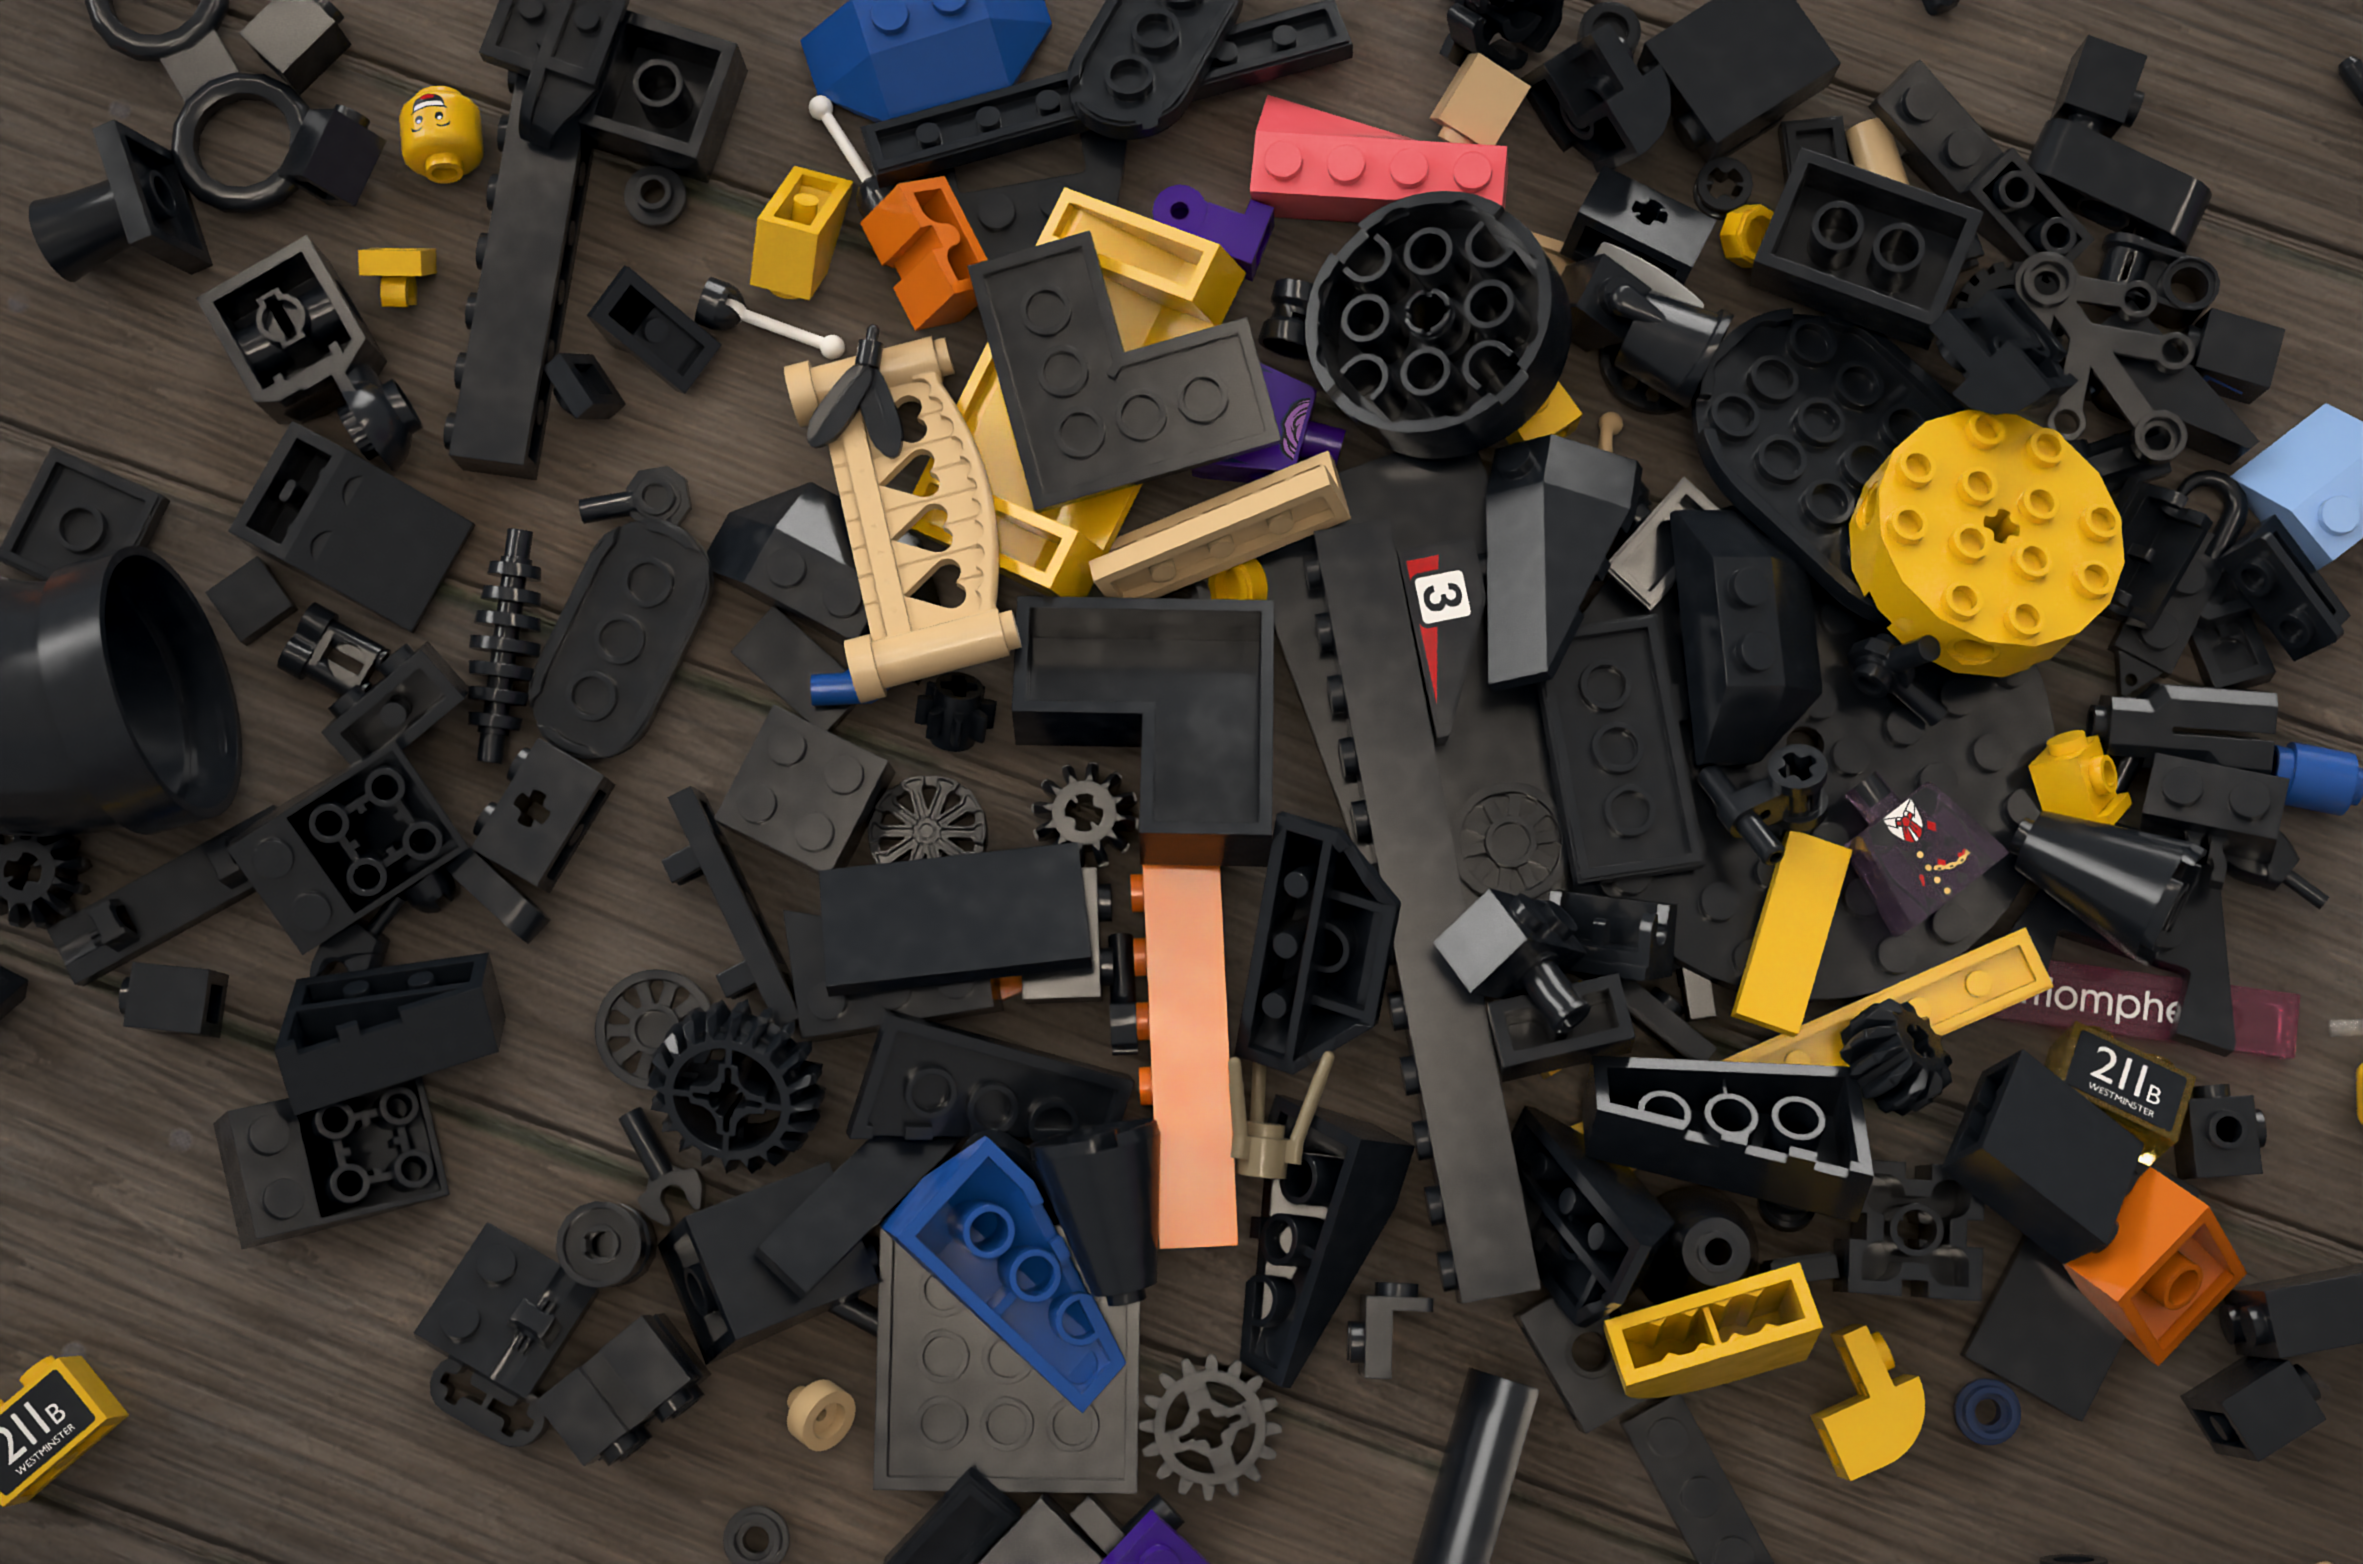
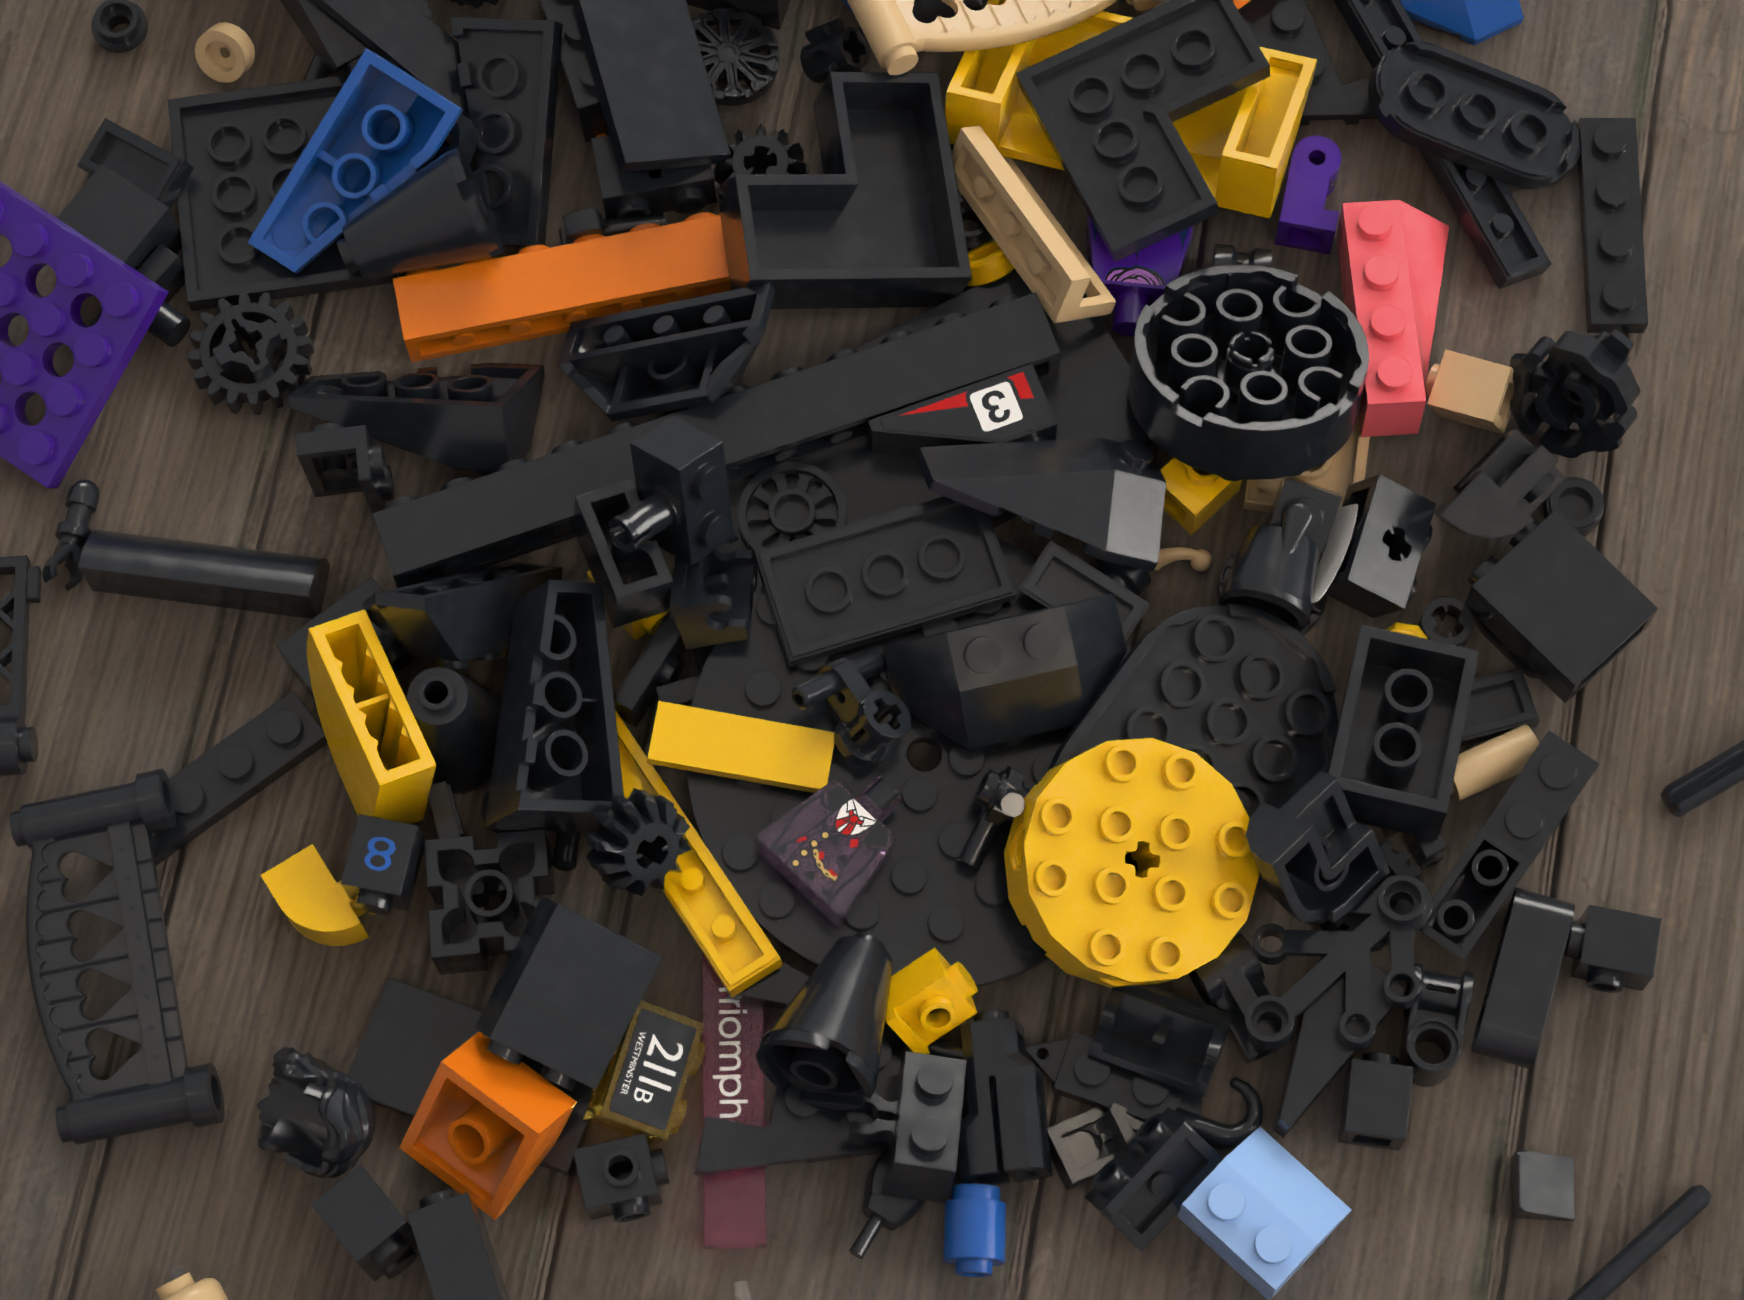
camera: 80 degrees right, 10 degrees down
(1261, 1145) = (490, 351): dark tan plant -> none
(1874, 1340) = (383, 864): none -> black brick
(2007, 1411) = (329, 995): dark blue plate -> none
(2113, 1448) = (315, 1114): none -> black hair
(2325, 215) = (1542, 1186): none -> slope

